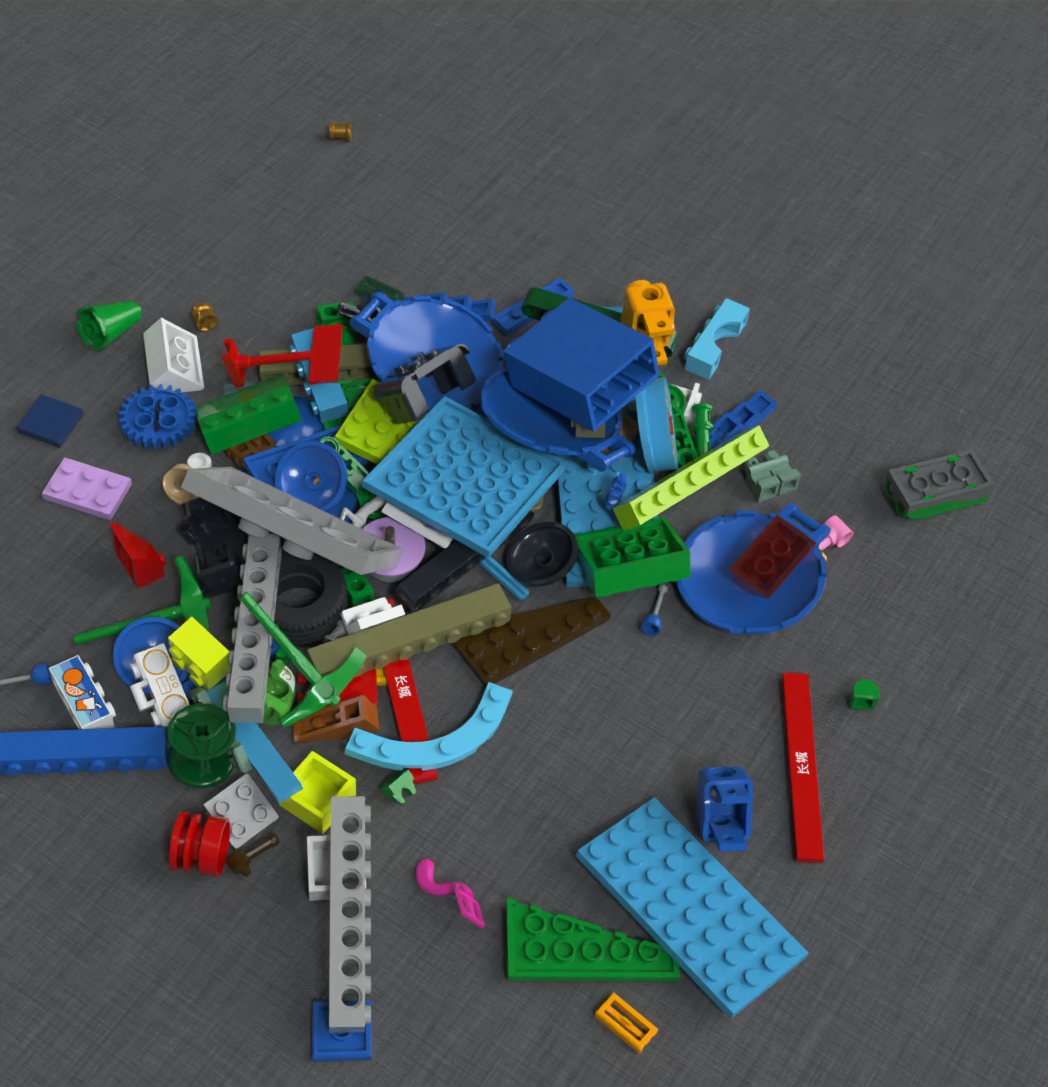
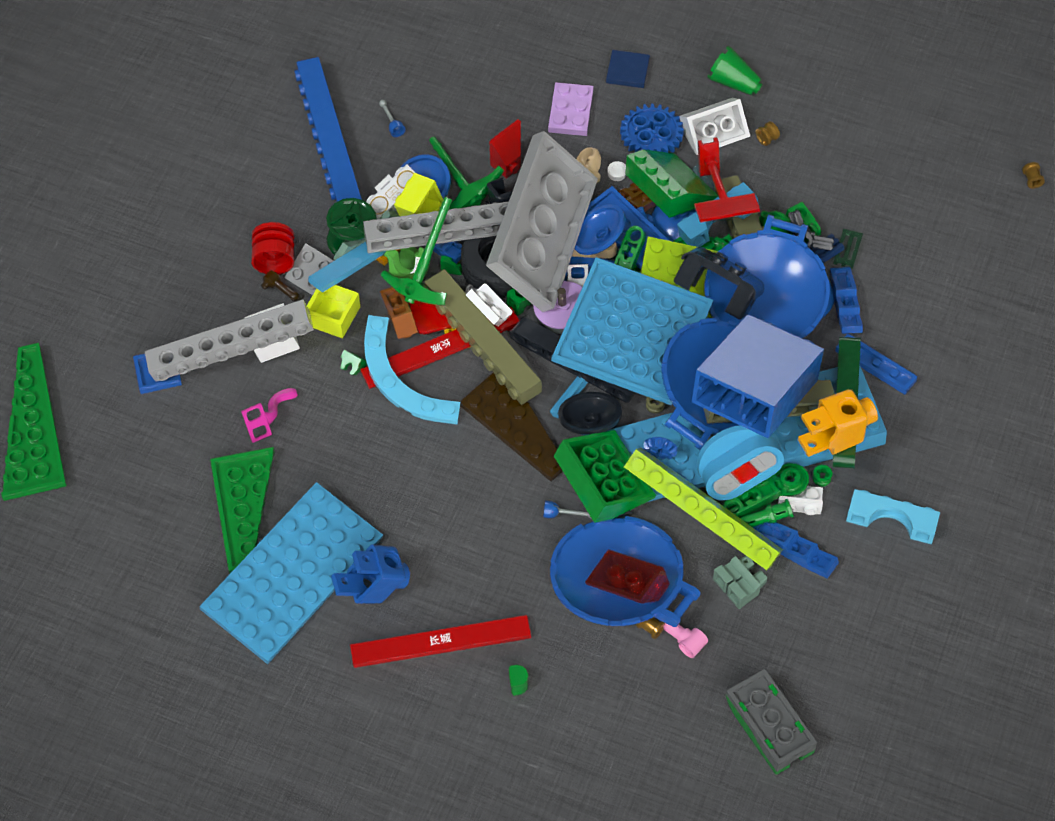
camera: 85 degrees right, 5 degrees up
(82, 695) = (381, 154): brick -> none
(619, 1030) = (197, 550): light orange tile -> none

